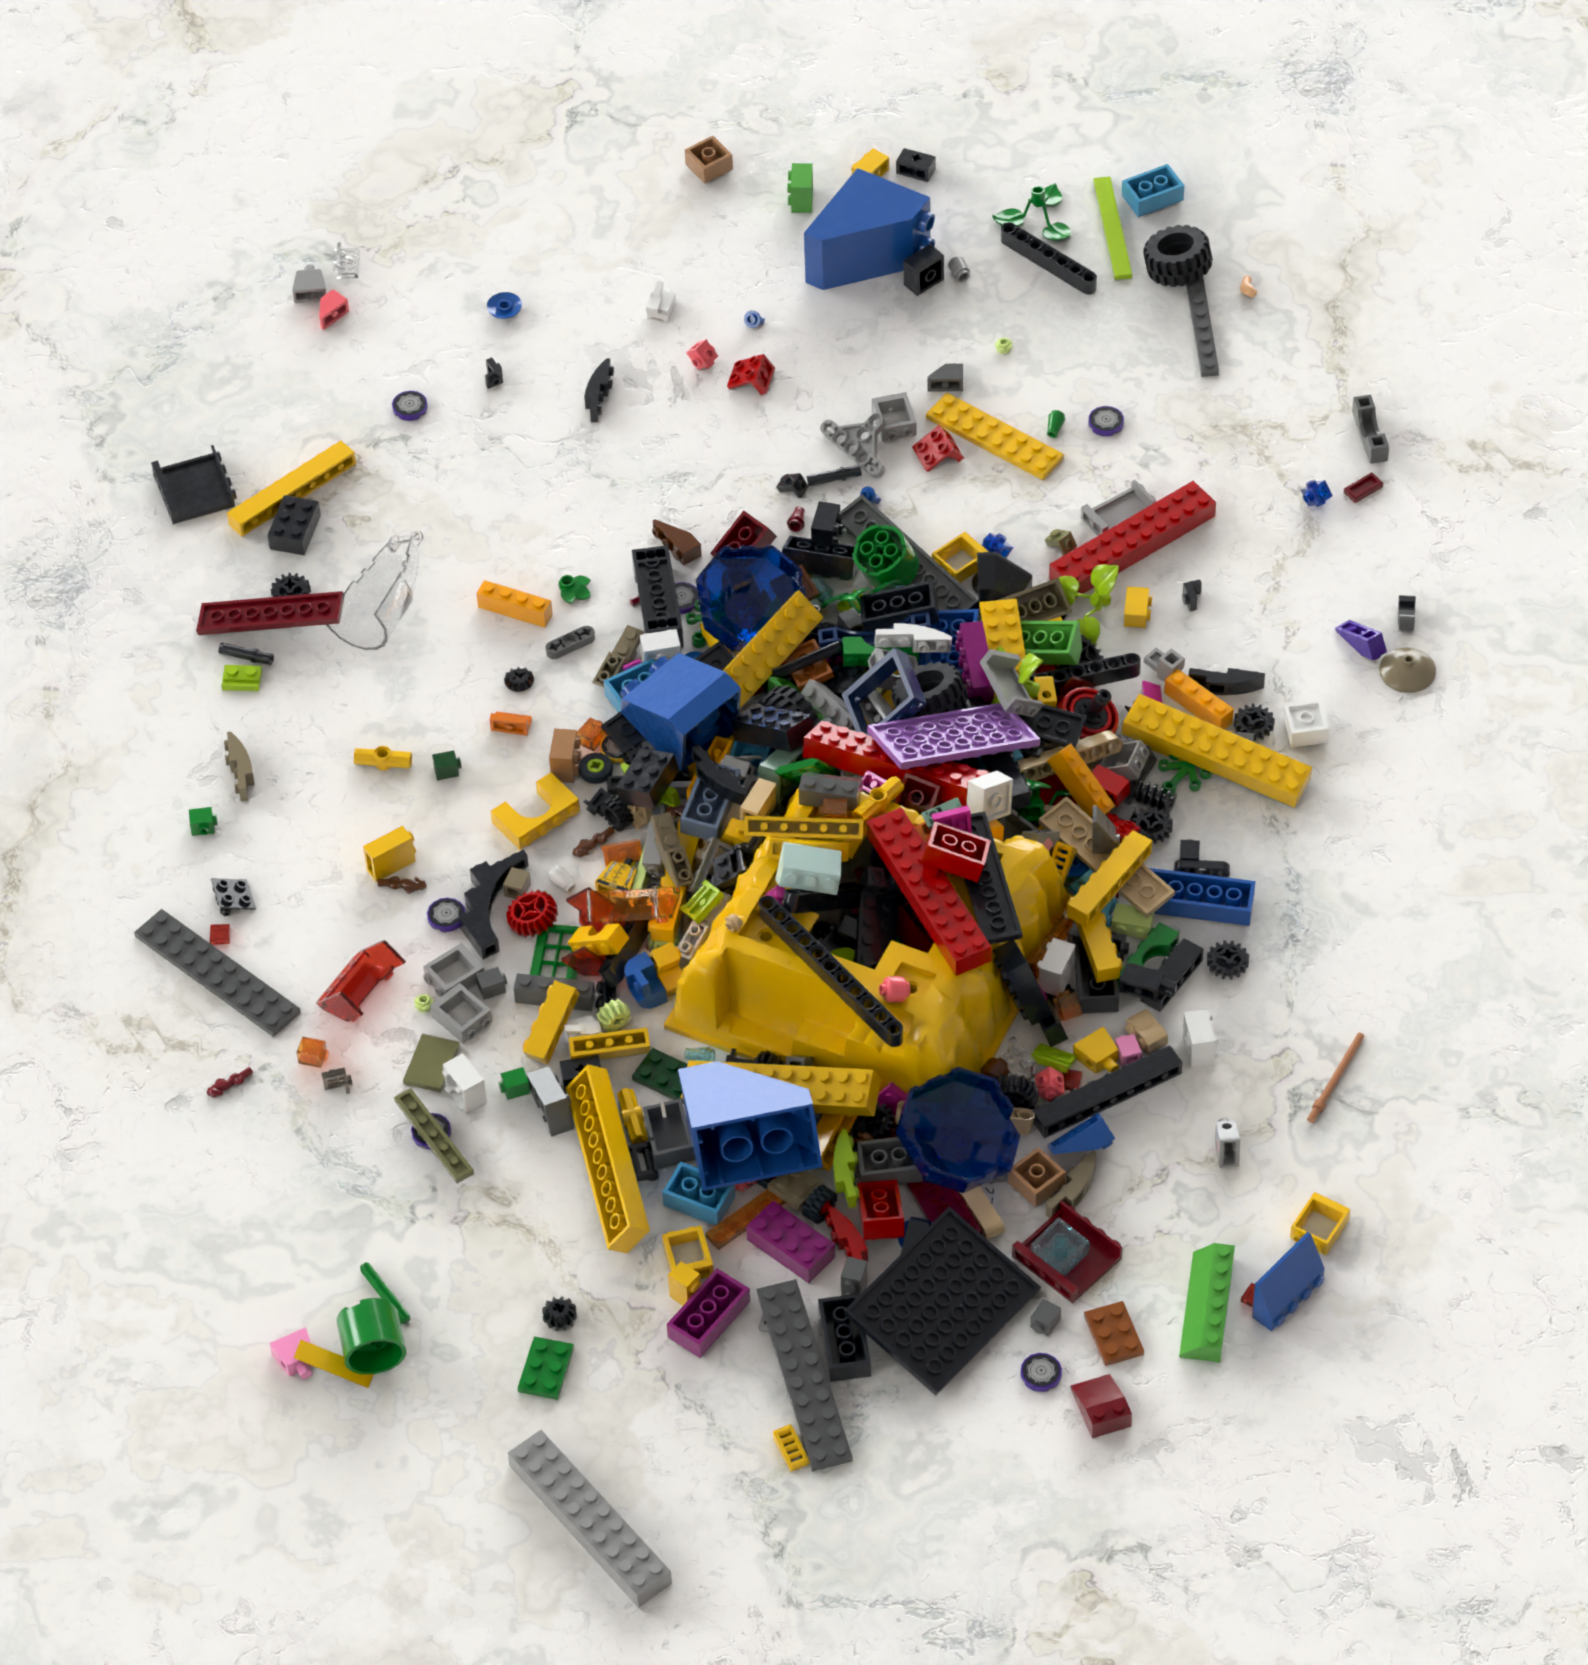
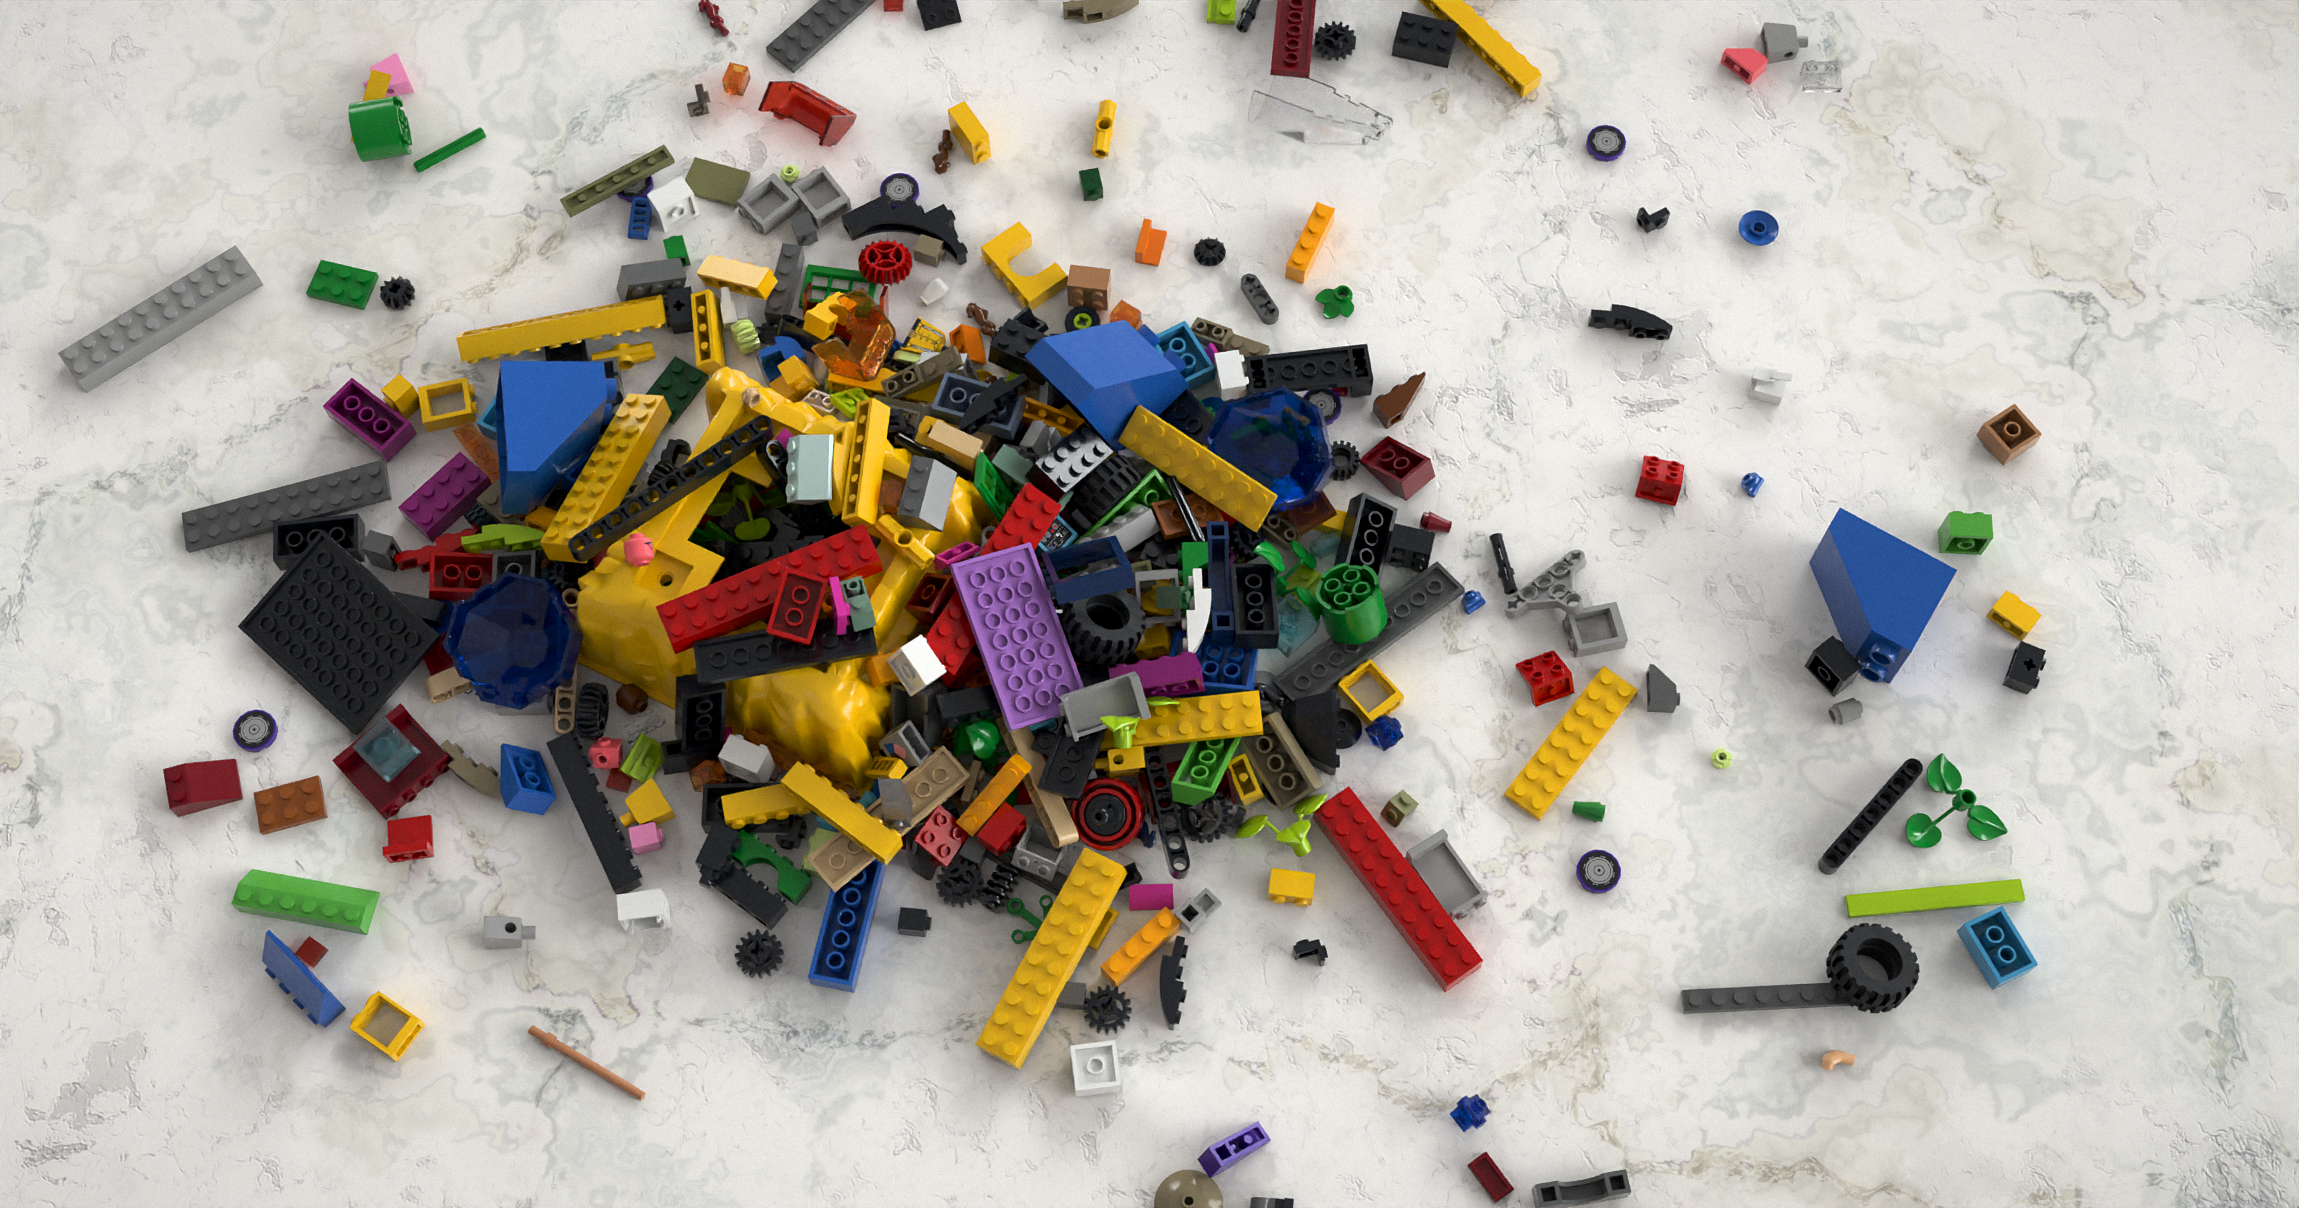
camera: 90 degrees right, 15 degrees up
(465, 1125) = (643, 206): none -> blue slope
(700, 1054) = (691, 420): clear light blue cone -> none
(702, 354) = (1685, 425): coral brick -> none
(784, 1436) = (212, 486): yellow slope -> none
(794, 483) = (1487, 520): black bracket -> none
(905, 643) = (1172, 597): none -> dark green brick
(1036, 1177) = (485, 733): medium nougat brick -> none
(1045, 1317) = (315, 736): dark grey brick -> none
(1142, 1230) = (409, 839): none -> red bracket
(1147, 1031) = (670, 859): tan brick -> none
(1213, 868) = (891, 936): black beam -> none

